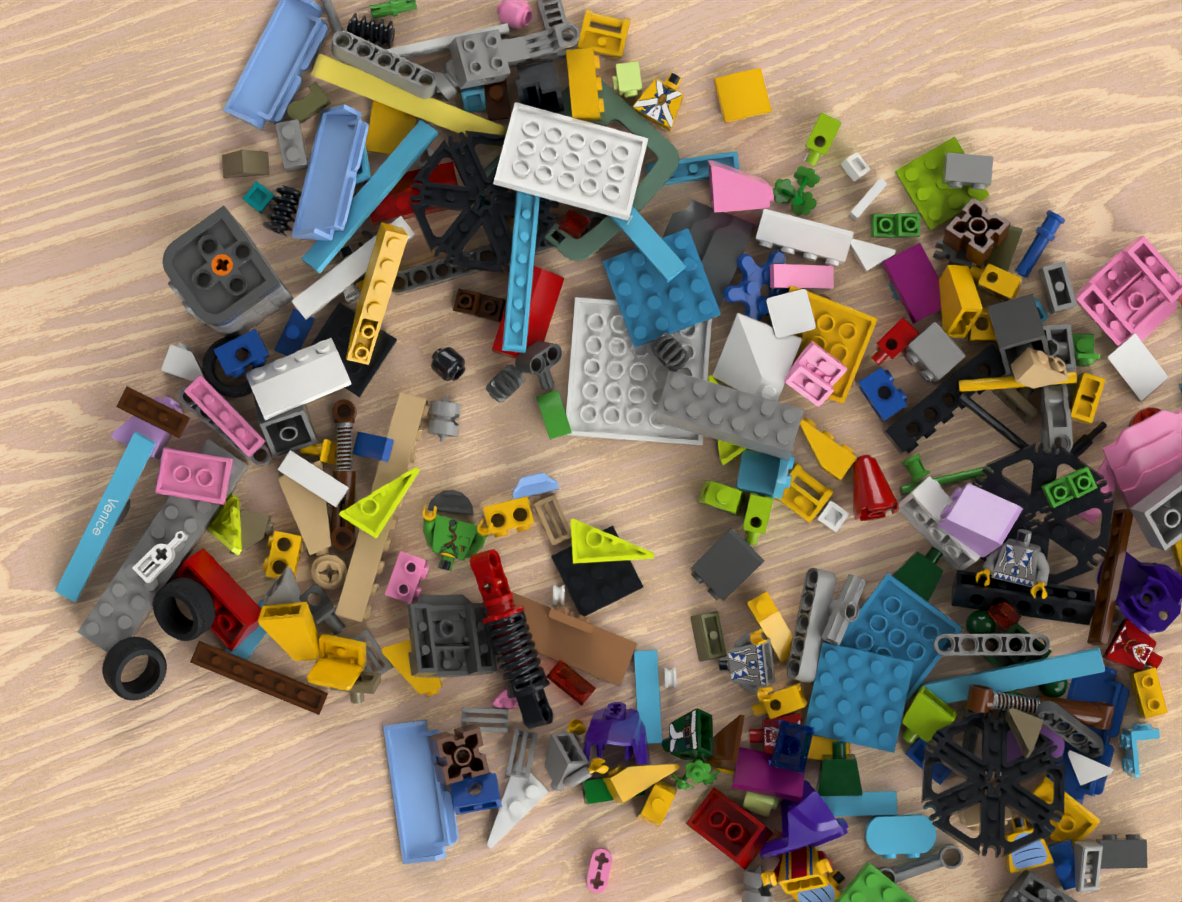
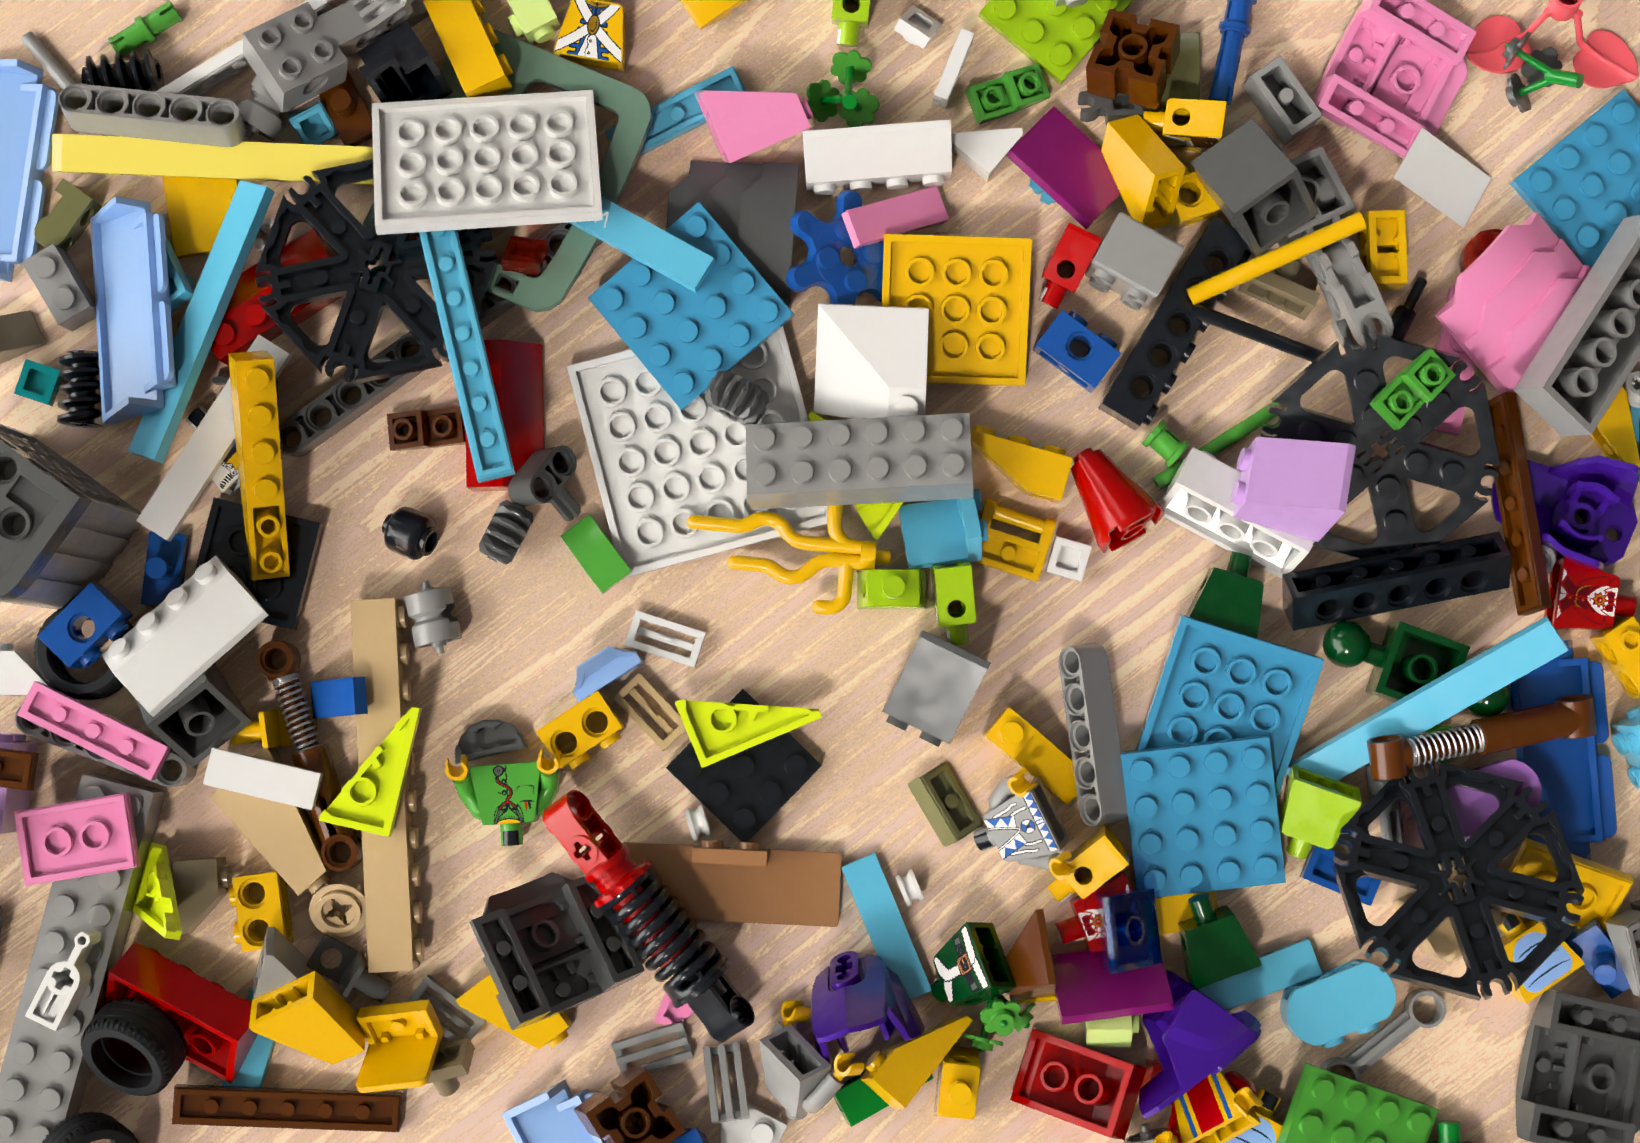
camera: 20 degrees left, 0 degrees up
(407, 577) = (459, 878): bright pink brick -> none
(561, 468) = (635, 629): none -> white tile
(571, 682) = (762, 948): clear red plate -> none
(700, 465) = (845, 552): none -> yellow plant
(791, 313) = (898, 276): white sticker -> none
(815, 374) = (967, 354): bright pink slope -> none
(843, 610) = (1134, 694): light grey piece -> none
(1002, 645) = (1395, 663): light grey beam -> none
(1004, 614) = (1379, 616): clear red plate -> none
(1018, 563) = (1374, 532): torso -> none
(1025, 729) = (1475, 780): dark tan slope -> none
(1038, 369) = (1302, 227): tan slope -> none
(1054, 714) = (1544, 750): dark grey beam -> none
(1084, 350) = (1356, 180): bright green bracket -> none
(1088, 769) = (1586, 805): white slope -> none

